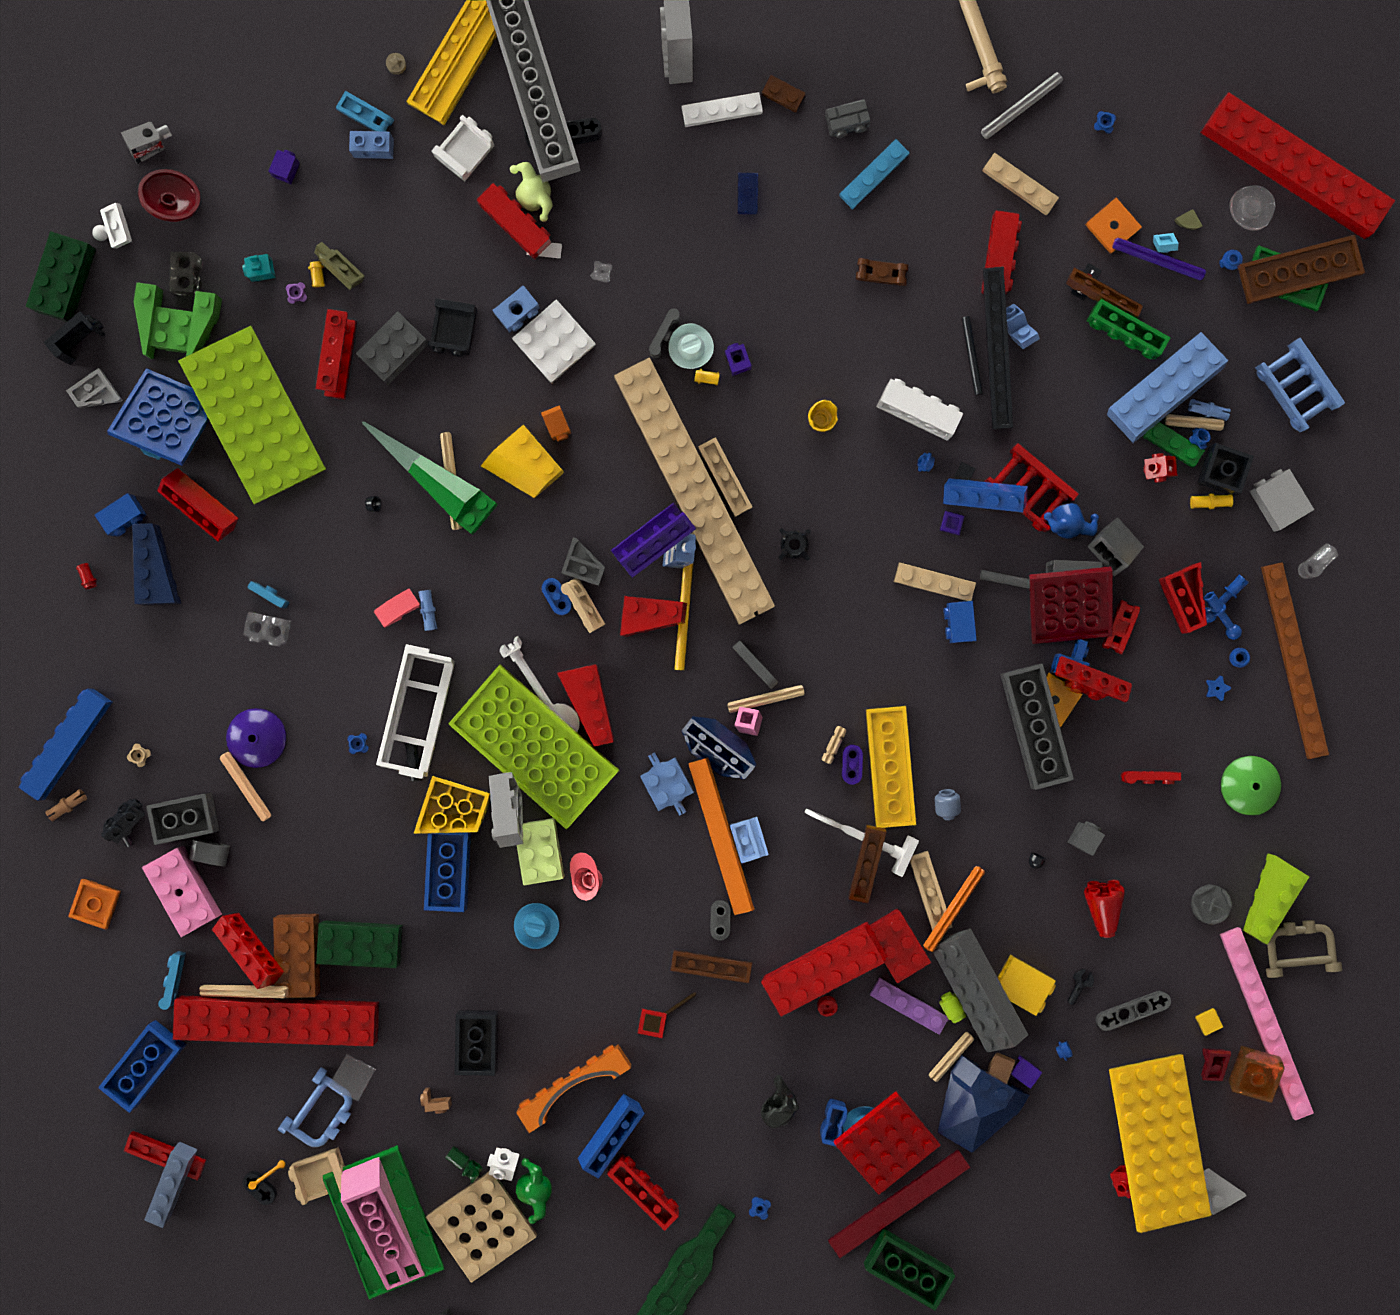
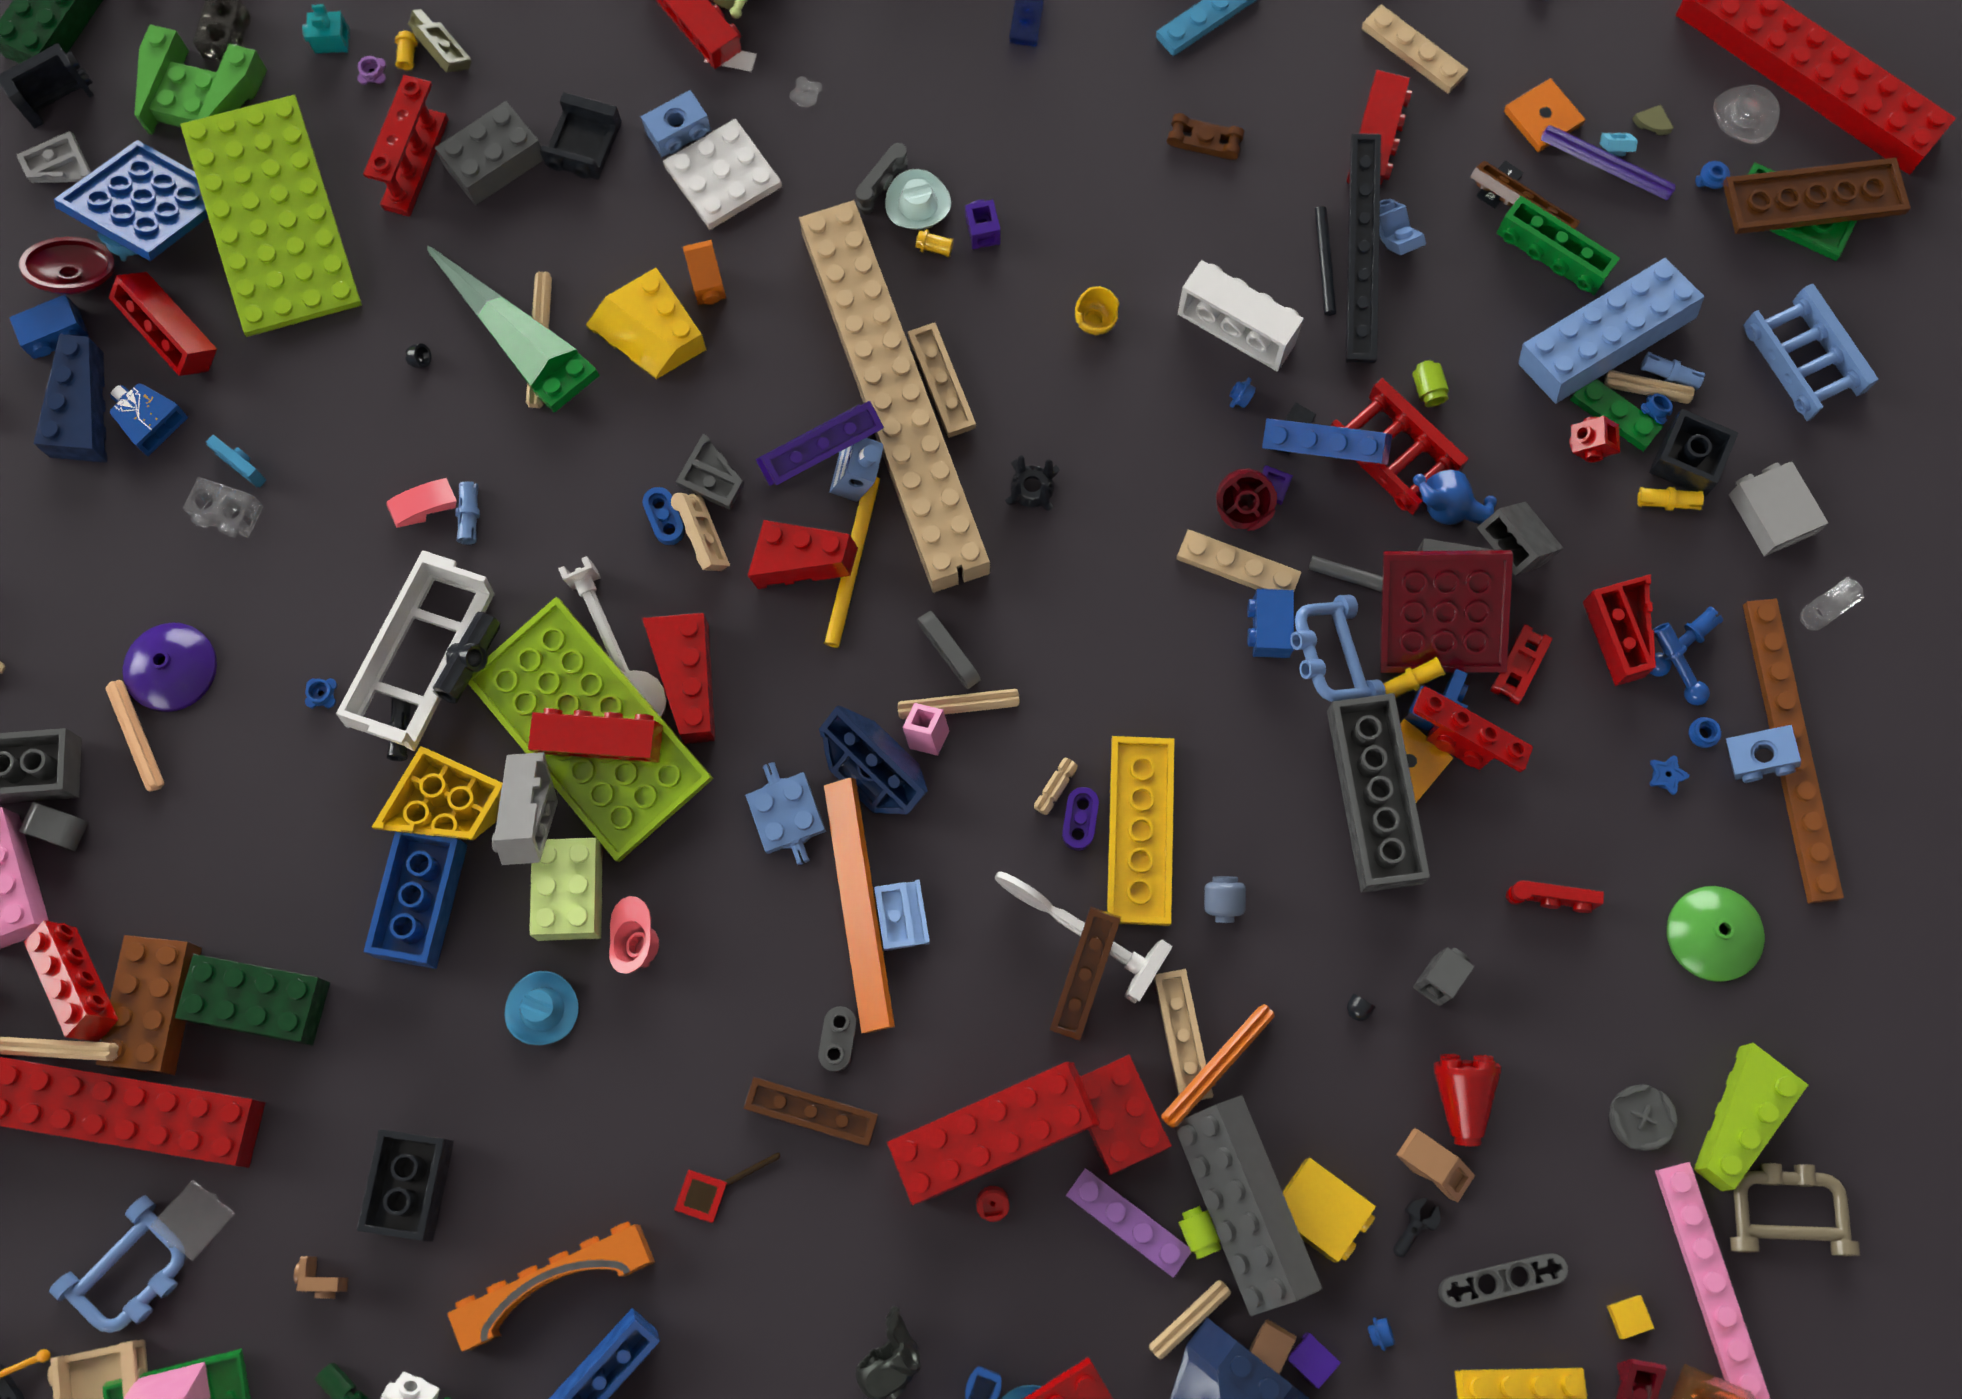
camera: 15 degrees right, 15 degrees down
(121, 463) = (67, 265): none -> dark red dish
(200, 570) = (145, 416): none -> blue torso
(448, 712) = (466, 657): none -> black piece
(541, 755) = (595, 736): none -> red brick
(936, 540) = (1246, 499): none -> dark red cylinder
(983, 635) = (1303, 639): none -> medium blue bar
(1049, 439) = (1430, 383): none -> lime brick
(1053, 647) = (1414, 678): none -> yellow pin
(1089, 949) = (1436, 1163): none -> medium nougat slope
(1286, 662) = (1778, 740): none -> medium blue brick

